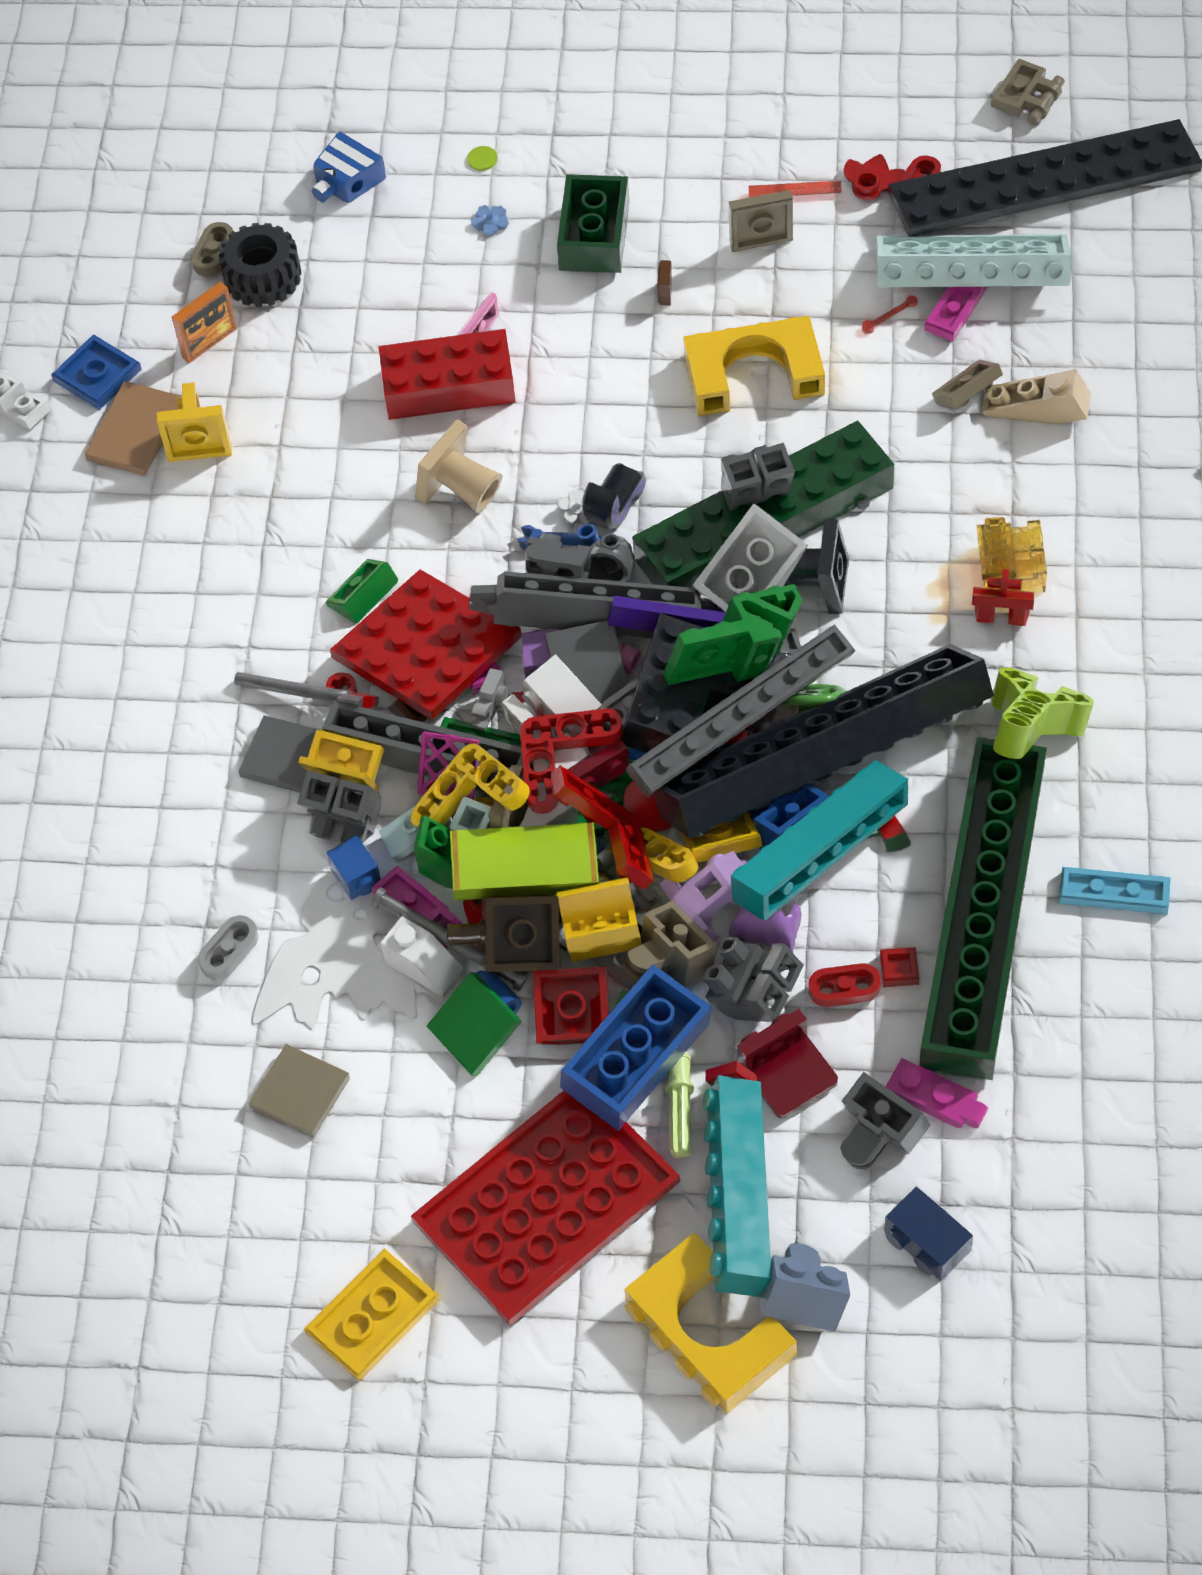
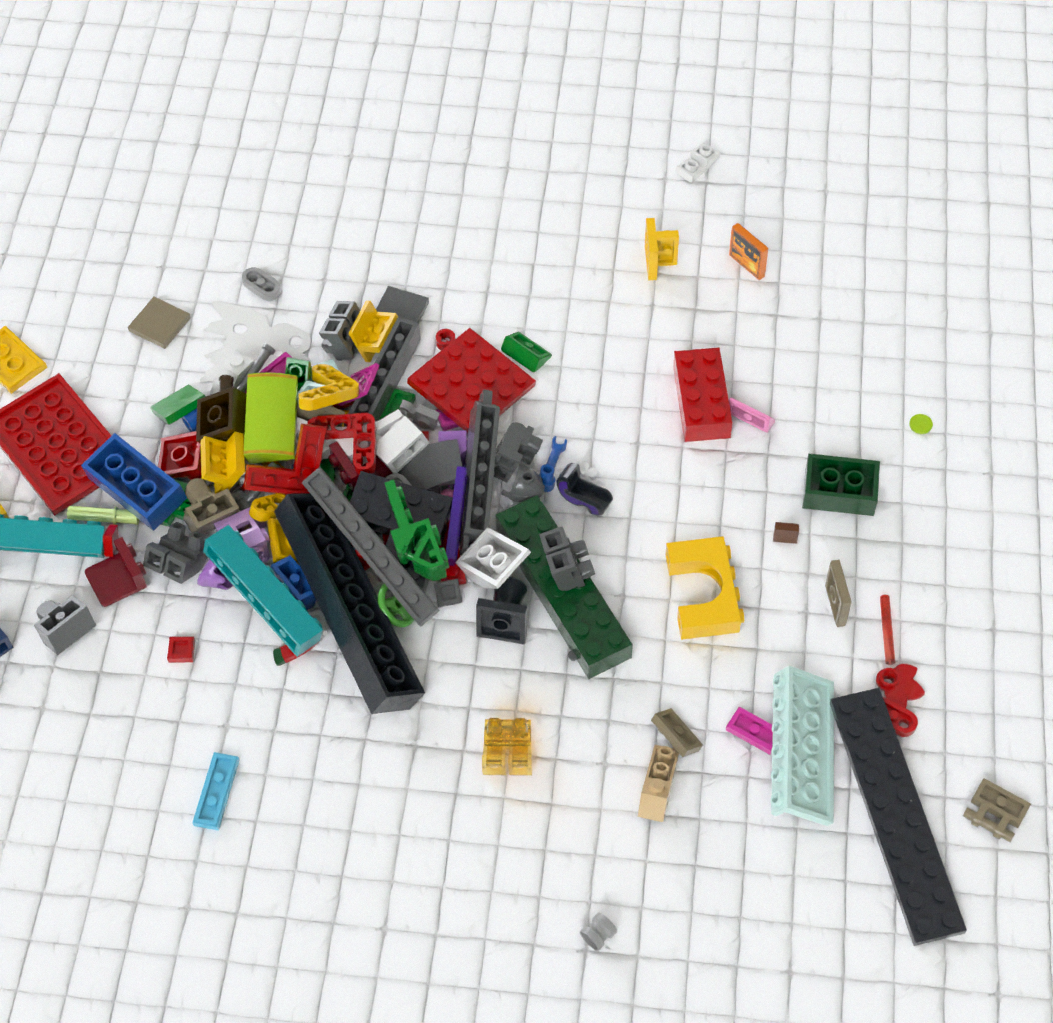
camera: 90 degrees right, 0 degrees up
(96, 371) = (721, 203): blue tile -> none
(130, 430) = (668, 217): medium nougat tile -> none
(205, 255) = (826, 261): dark tan plate -> none
(258, 246) = (810, 271): black tyre -> none
(305, 690) = (426, 340): flat silver piece -> none
(346, 170) = (900, 334): blue torso -> none
(354, 867) = (303, 343): blue brick -> none
(449, 467) = (611, 390): tan plant -> none
(490, 220) = (857, 427): medium blue plant -> none
(843, 983) = (170, 615): red plate -> none
(868, 326) = (745, 673): clear red hinge -> none
(936, 1095) = (82, 663): dark pink hinge -> none
(982, 913) = (209, 697): dark green brick -> none
(1017, 601) = (465, 736): red hips -> none
(1034, 713) = (353, 754): lime beam -> none

